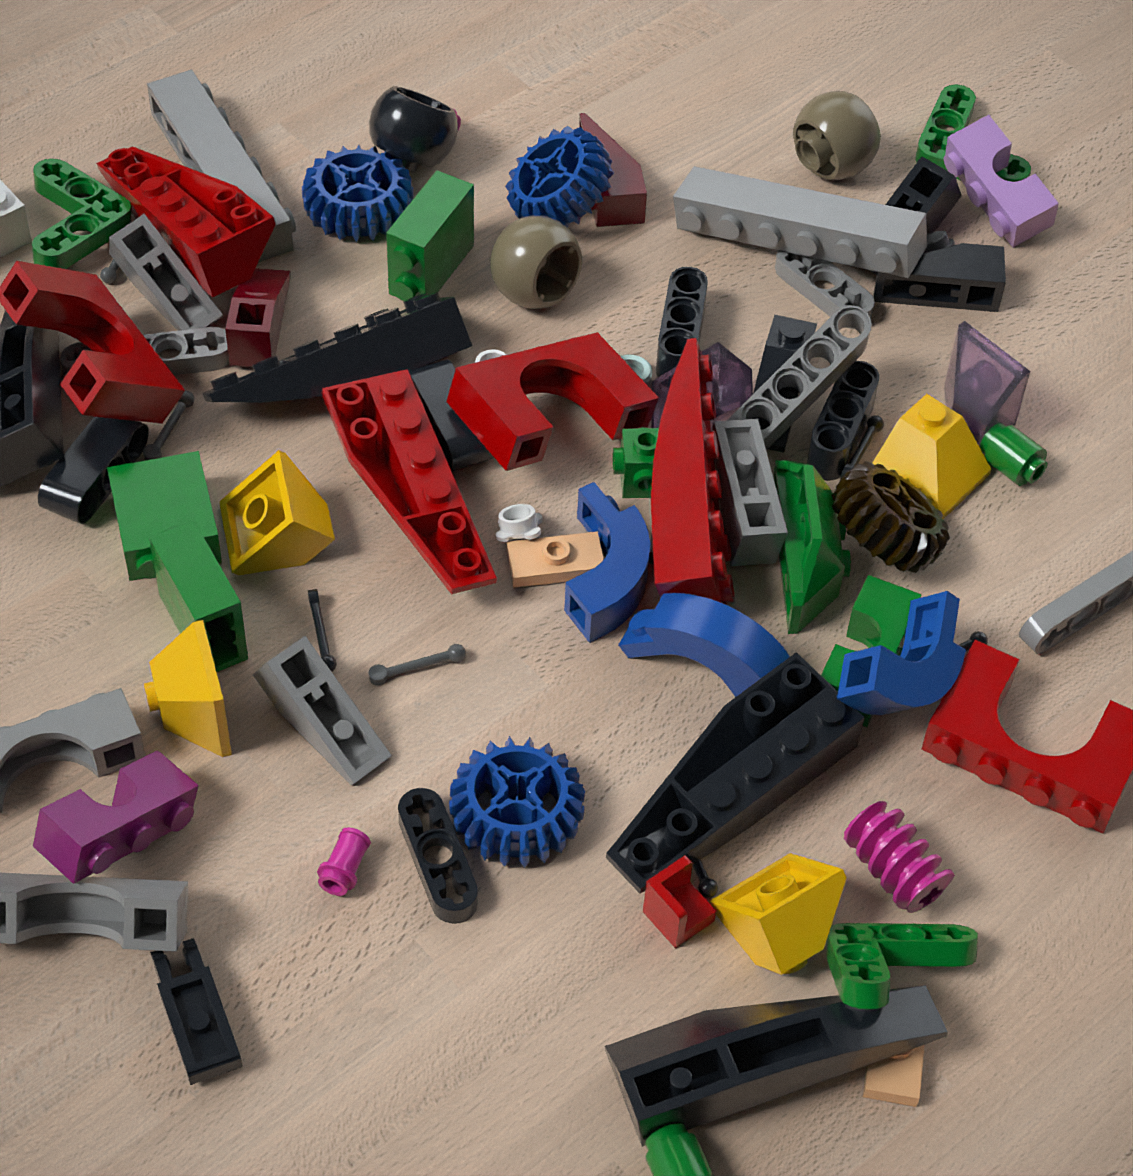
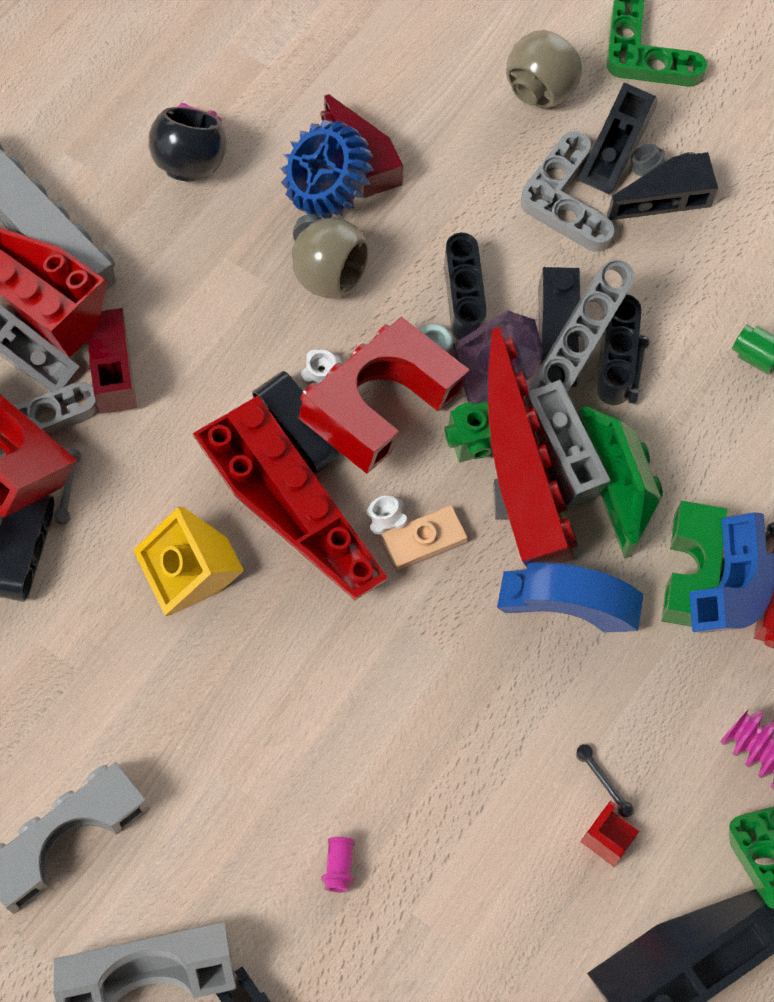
camera: 15 degrees left, 15 degrees up
(89, 836) = (133, 912): magenta arch -> none
(156, 497) = (95, 580): green brick -> none
(189, 691) = (170, 747): yellow slope -> none
(198, 590) = (151, 658): green brick -> none
(314, 604) = (268, 681): black hinge -> none
(321, 710) = (280, 733): light grey slope -> none
(356, 192) = (163, 228): blue gear -> none
(379, 674) = (314, 680): dark grey hinge -> none
(386, 344) = (203, 386): black wedge -> none
(430, 237) = (236, 255): green brick -> none
(434, 875) = (435, 856): black beam -> none
(516, 818) = (444, 764): blue gear -> none
(614, 588) = (479, 561): blue arch -> none
(740, 770) = (624, 706): black wedge -> none
(783, 911) = (690, 818): yellow slope -> none
(801, 221) = (537, 166): light grey brick -> none
(890, 517) = (684, 441): dark brown gear -> none
(935, 453) = (697, 372): yellow slope -> none
(983, 382) = (722, 298): clear purple slope -> none
(1013, 208) = (702, 107): lavender arch -> none

